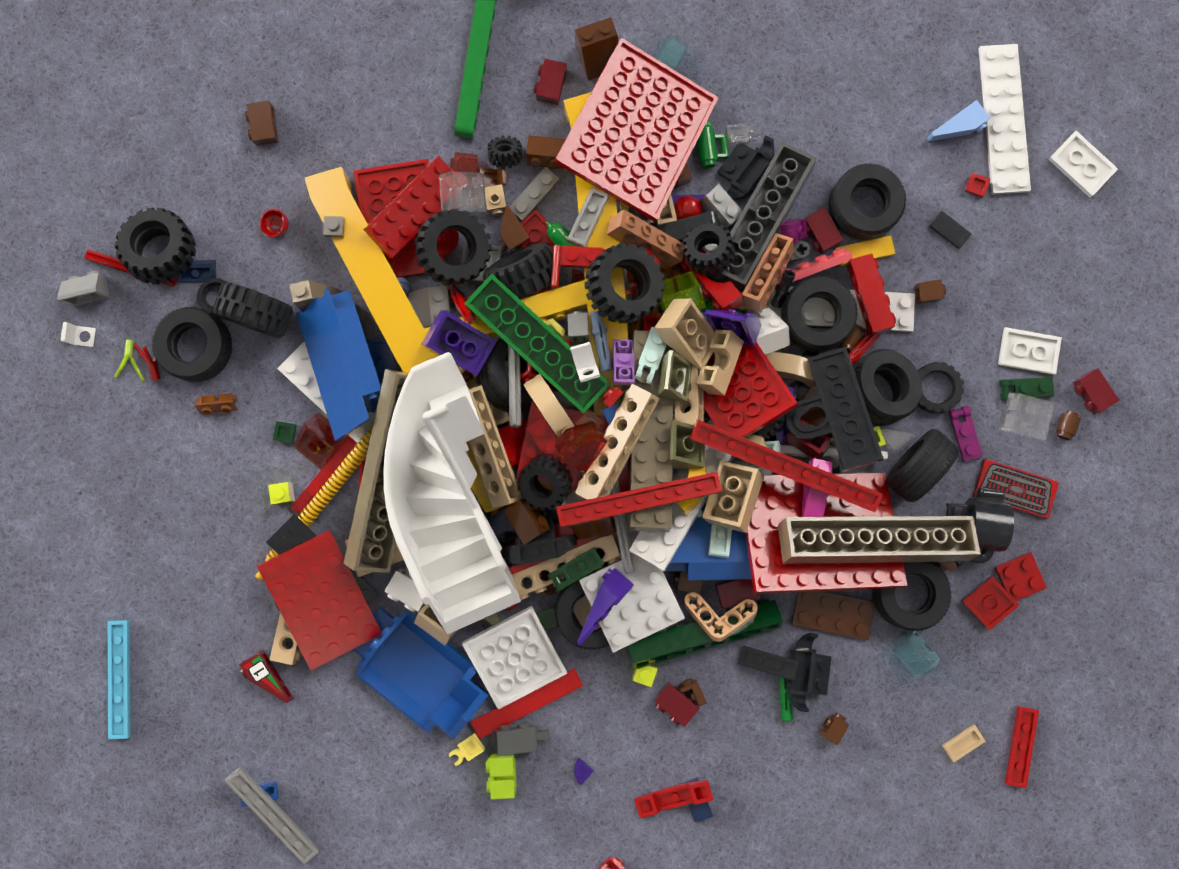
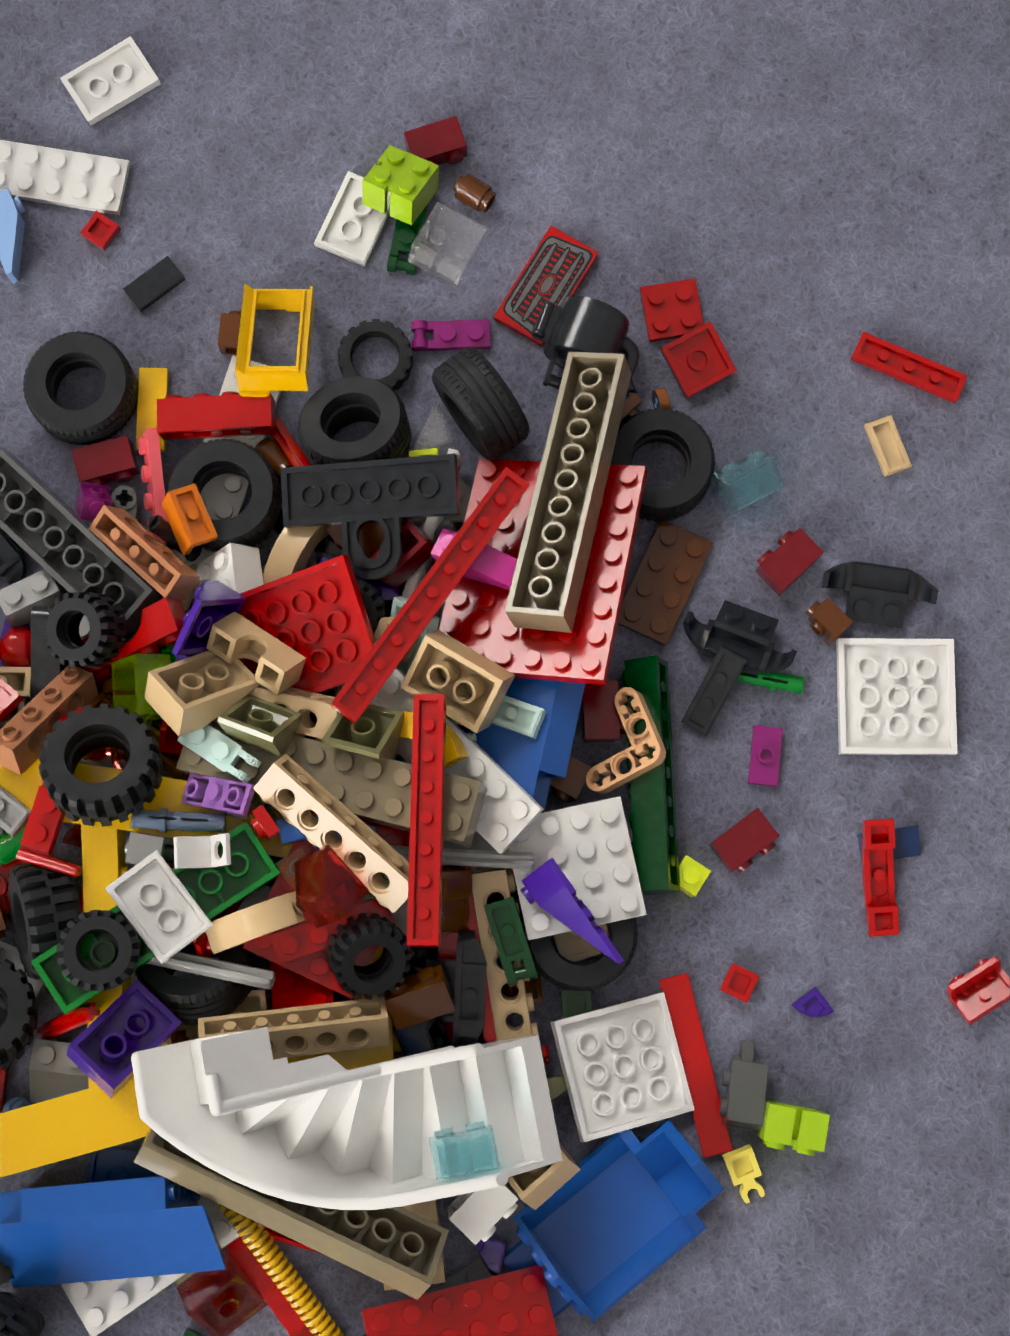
camera: 75 degrees left, 5 degrees down
(382, 602) = (493, 1253): none -> dark purple tile
(438, 572) = (463, 1150): none -> clear light blue brick
(512, 296) = (71, 942): none -> black tyre
(544, 344) = (159, 907): none -> white tile
(584, 720) = (739, 982): none -> red plate
(696, 694) = (736, 807): reddish brown bracket -> none
(734, 705) = (765, 756): none -> magenta plate
(795, 784) = (896, 696): none -> white plate
(797, 295) = (188, 518): none -> orange panel
(862, 758) = (878, 591): none -> black plate
(867, 693) = (788, 561): none -> dark red brick
(901, 317) = (261, 380): none -> yellow piece
(956, 583) = (661, 399): none -> dark orange tile
(1065, 380) = (409, 180): none -> lime piece

